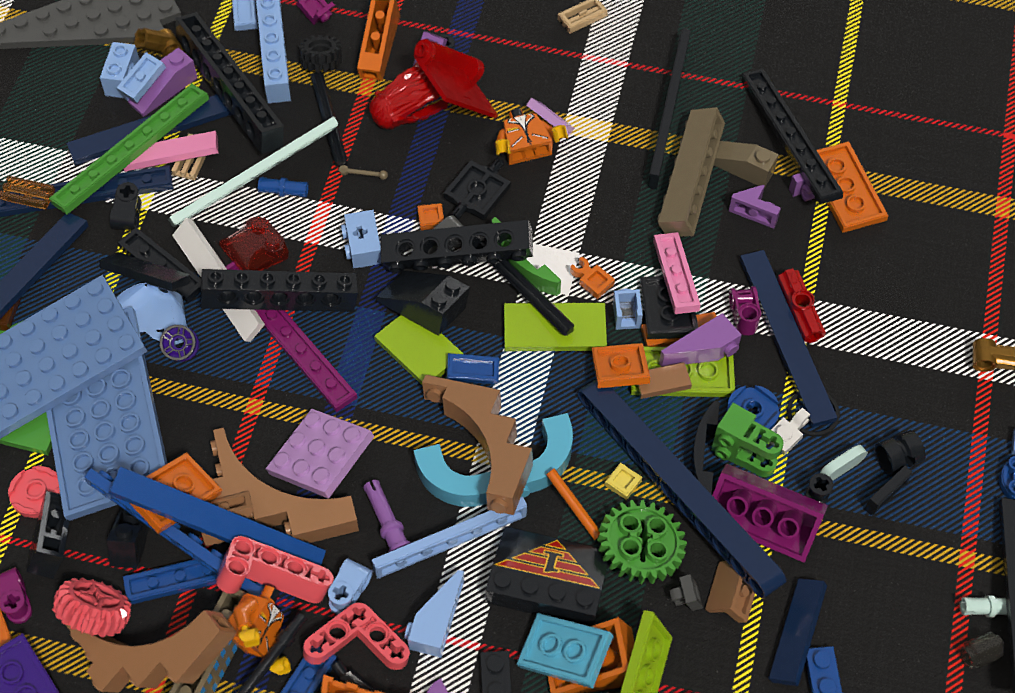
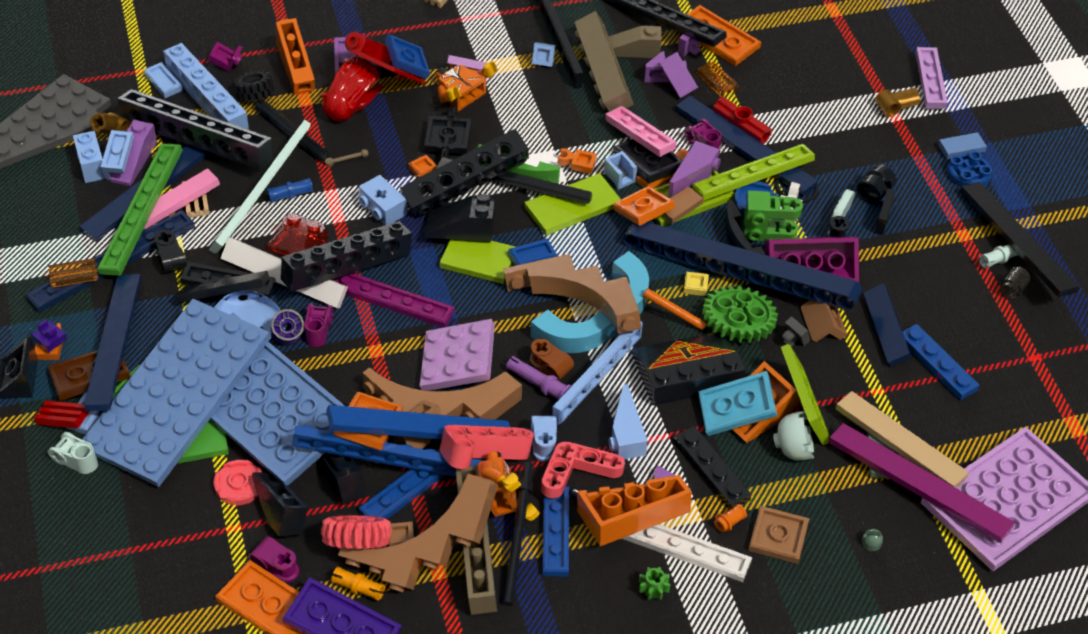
camera: 30 degrees left, 10 degrees down
(69, 660) = (358, 583): none -> light orange pin
(144, 627) = (401, 532): none -> medium nougat tile
(216, 348) = (317, 324): none -> magenta piece
(410, 504) = (550, 359): none -> dark orange piece
(491, 81) = (407, 56): none -> blue tile
(636, 135) = (543, 54): none -> light blue tile
(761, 221) = (678, 75): none -> medium lavender tile
(769, 376) = (753, 172): none -> lime tile
(804, 258) = (715, 81): none -> clear orange tile

